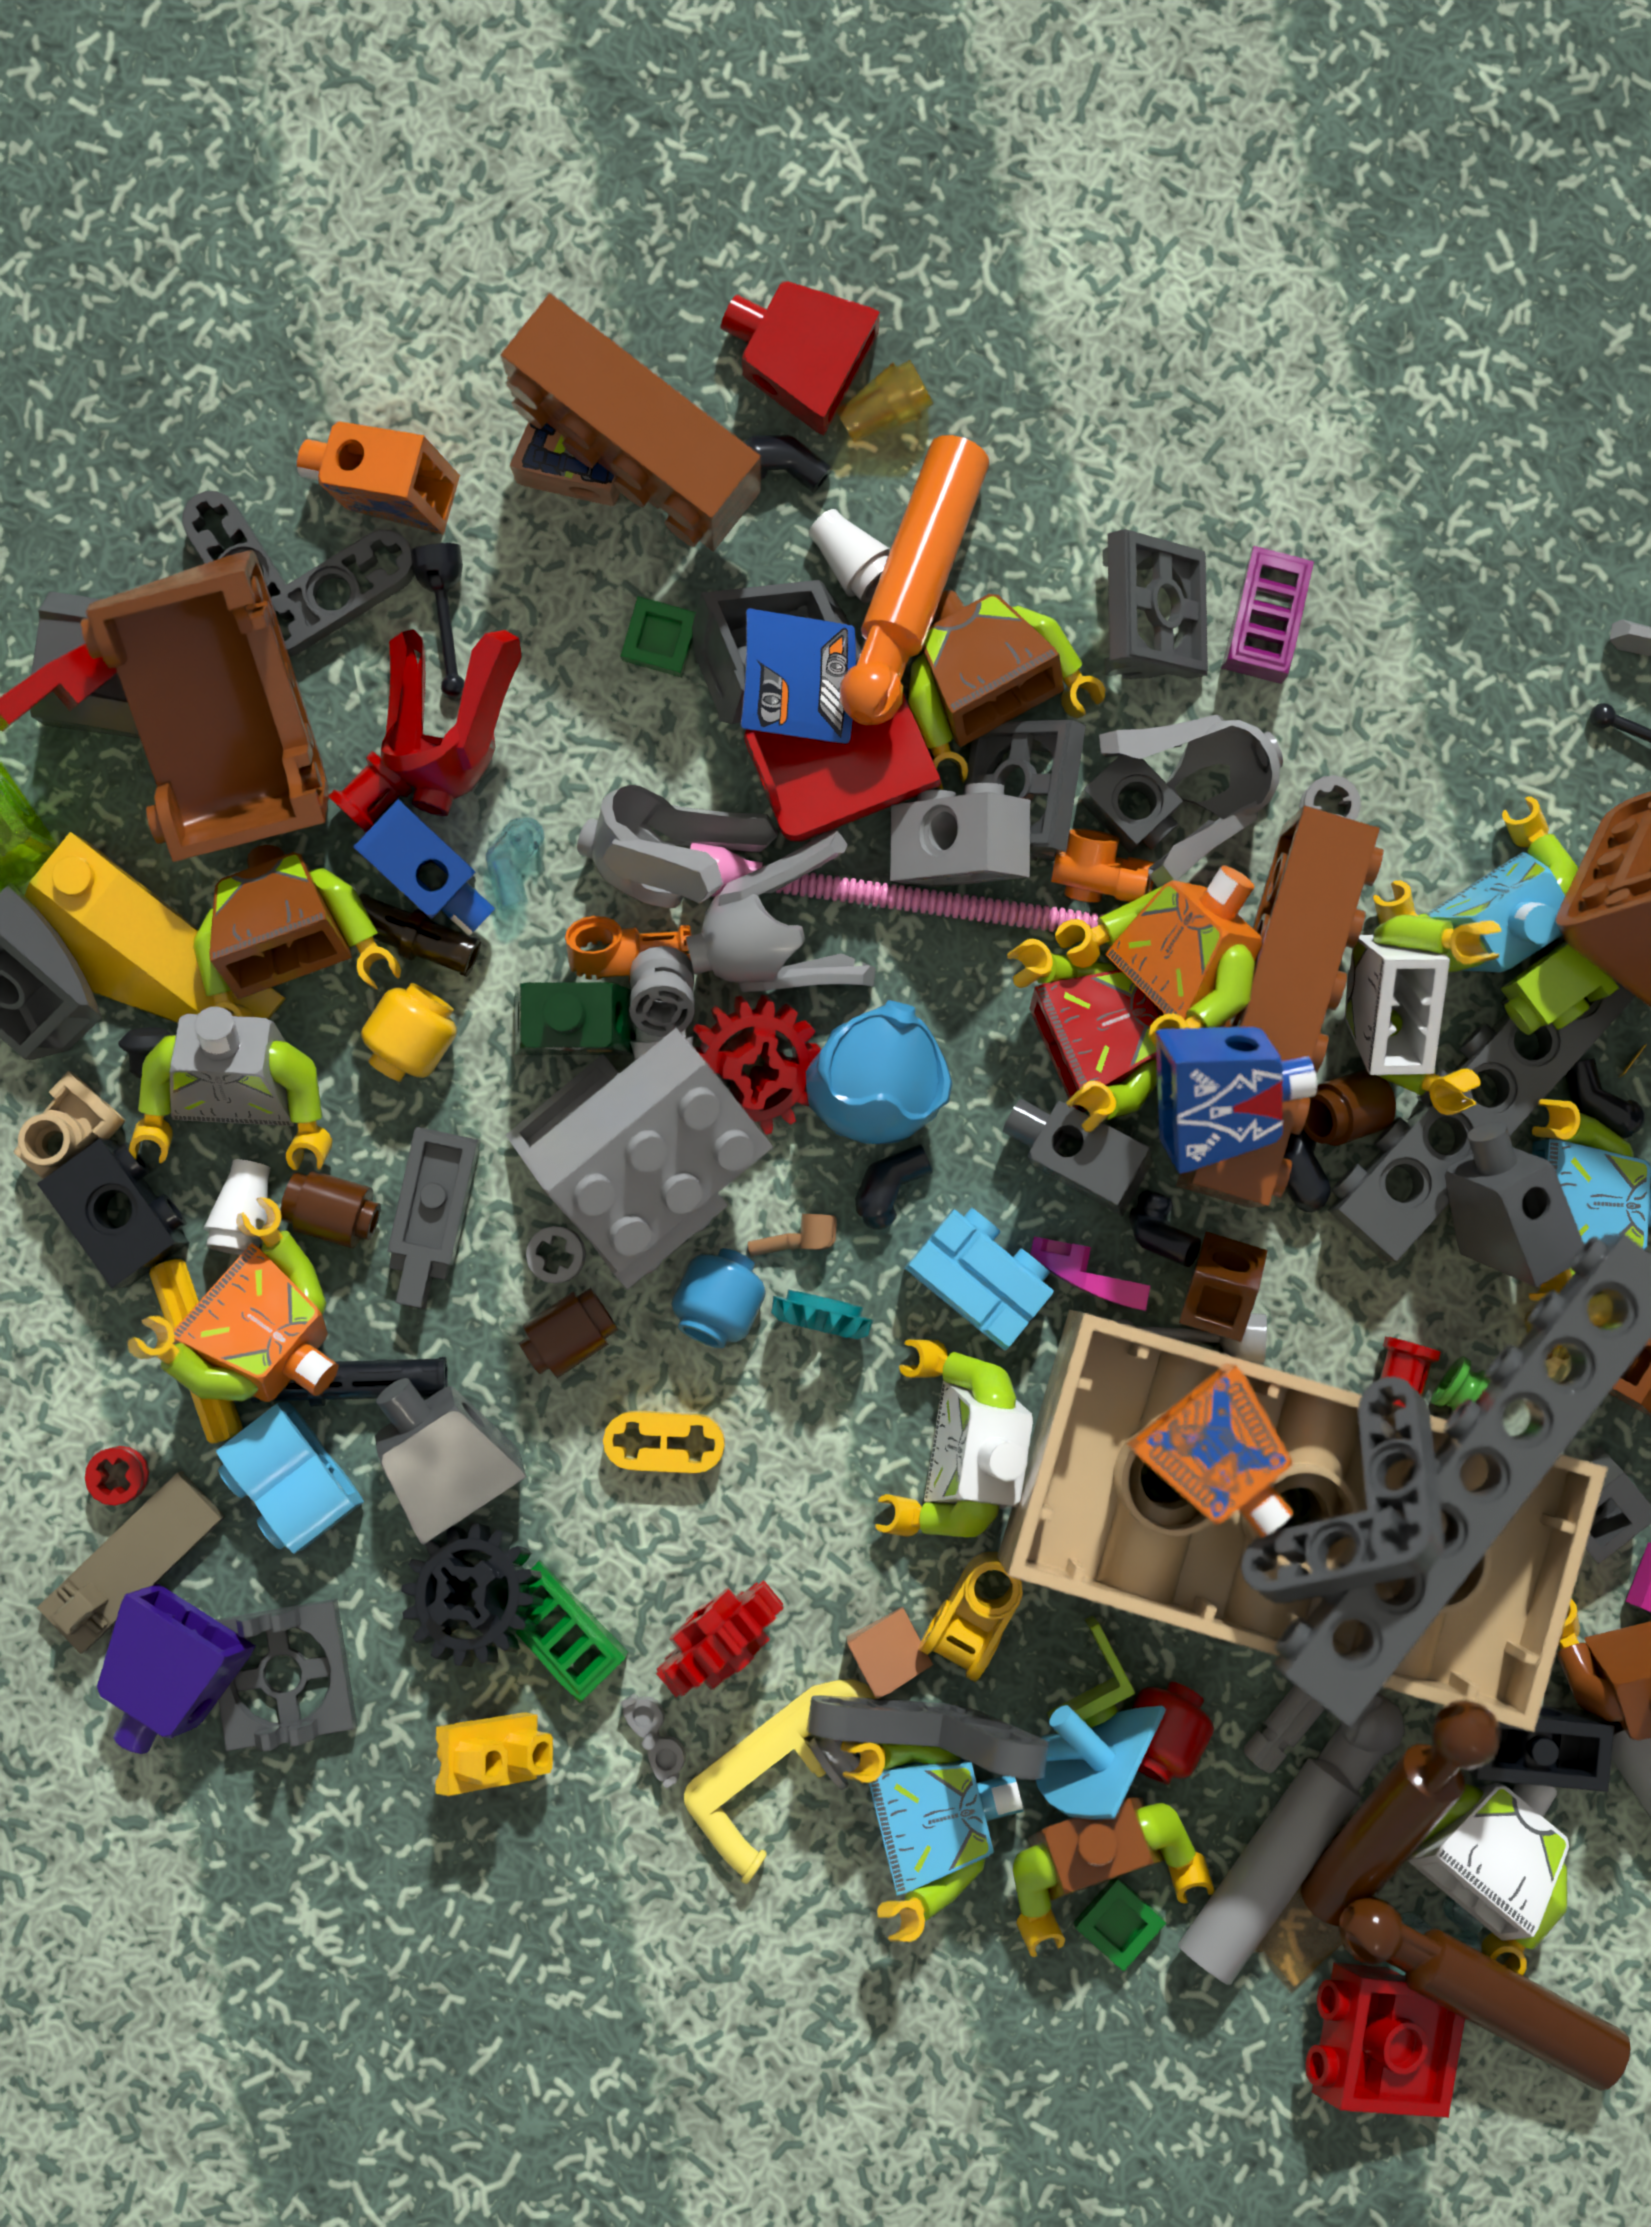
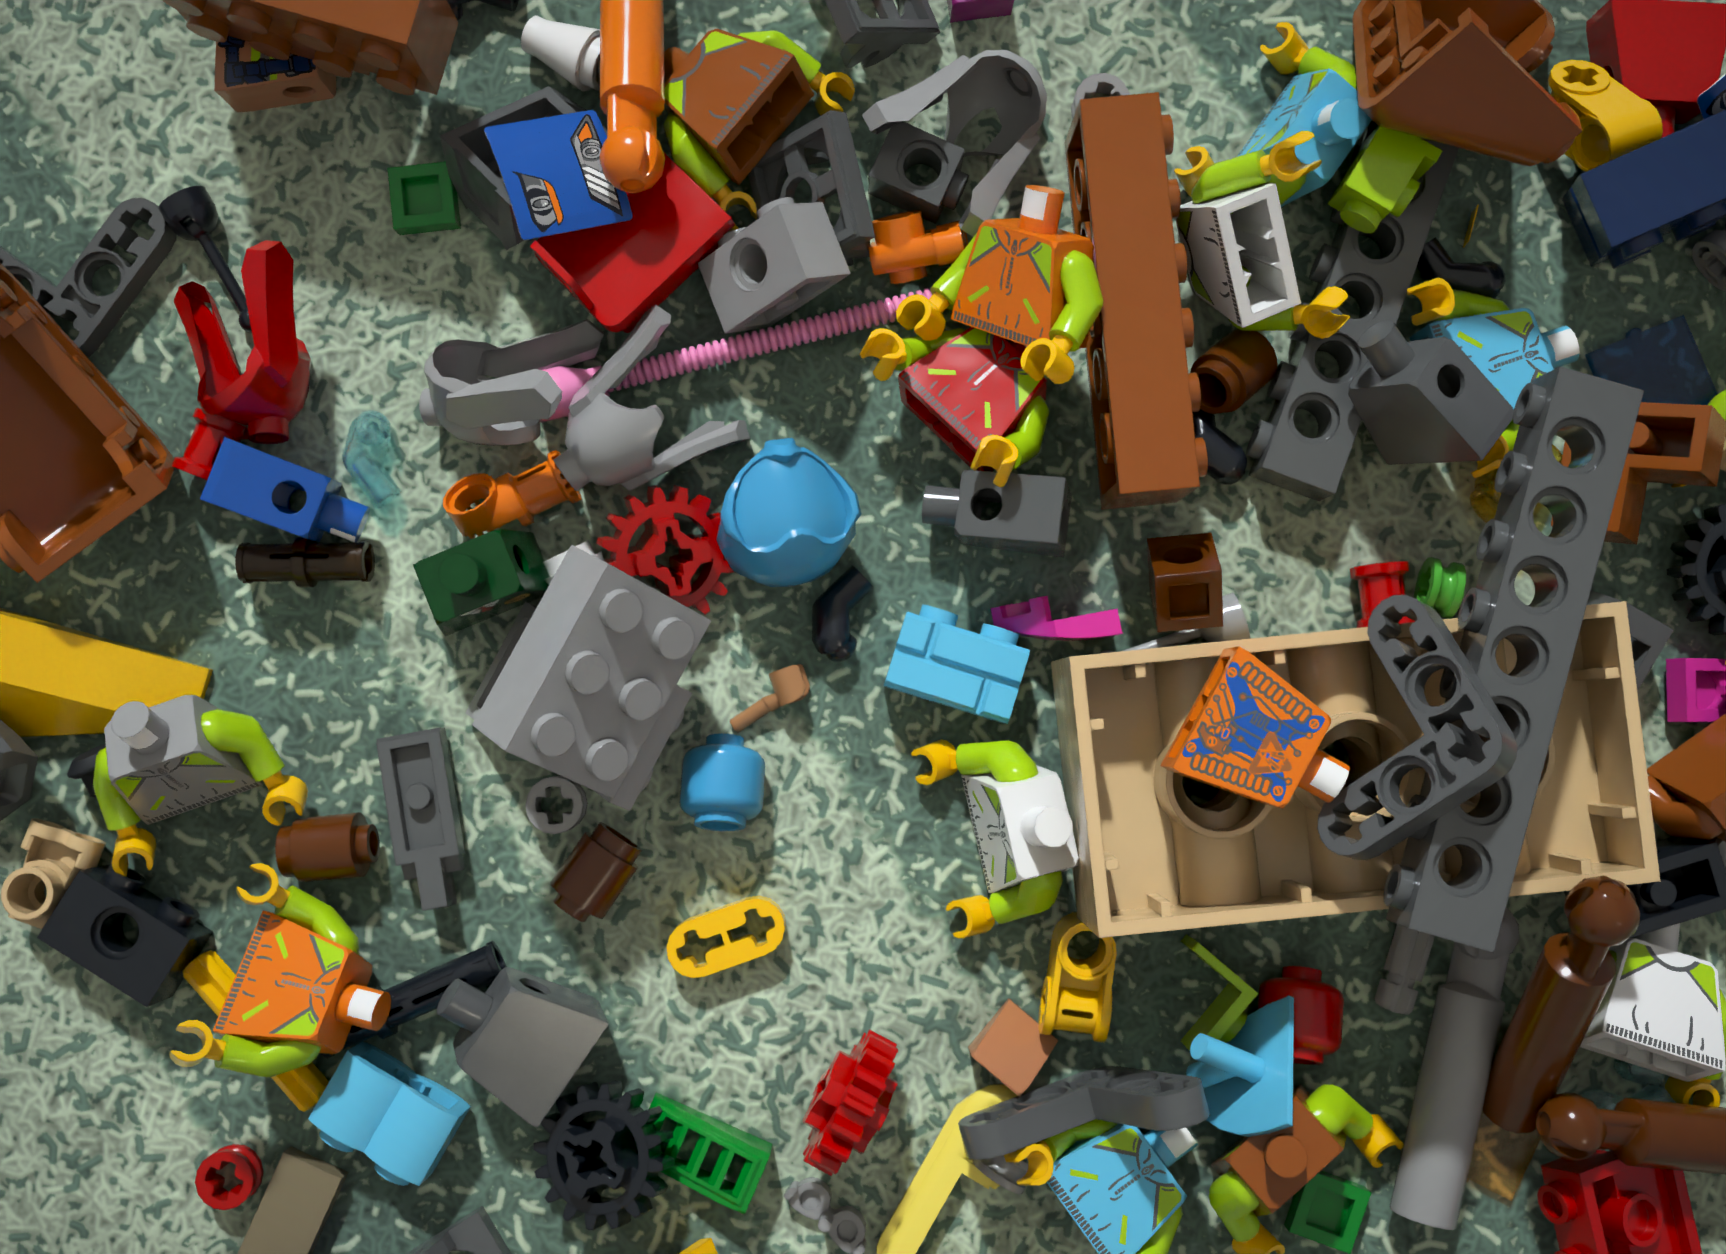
camera: 20 degrees left, 0 degrees up
(239, 1194) = (237, 854): white cone -> none
(279, 926) = (170, 603): dark orange torso -> none
(383, 474) = (103, 146): orange torso -> none
(409, 1032) = (334, 654): yellow head -> none
(661, 991) = (551, 518): light grey wheel -> none
(821, 1314) = (823, 759): teal gear -> none
(1156, 1233) = (1105, 560): black arm -> none
(1223, 1092) = (1115, 393): blue torso -> none

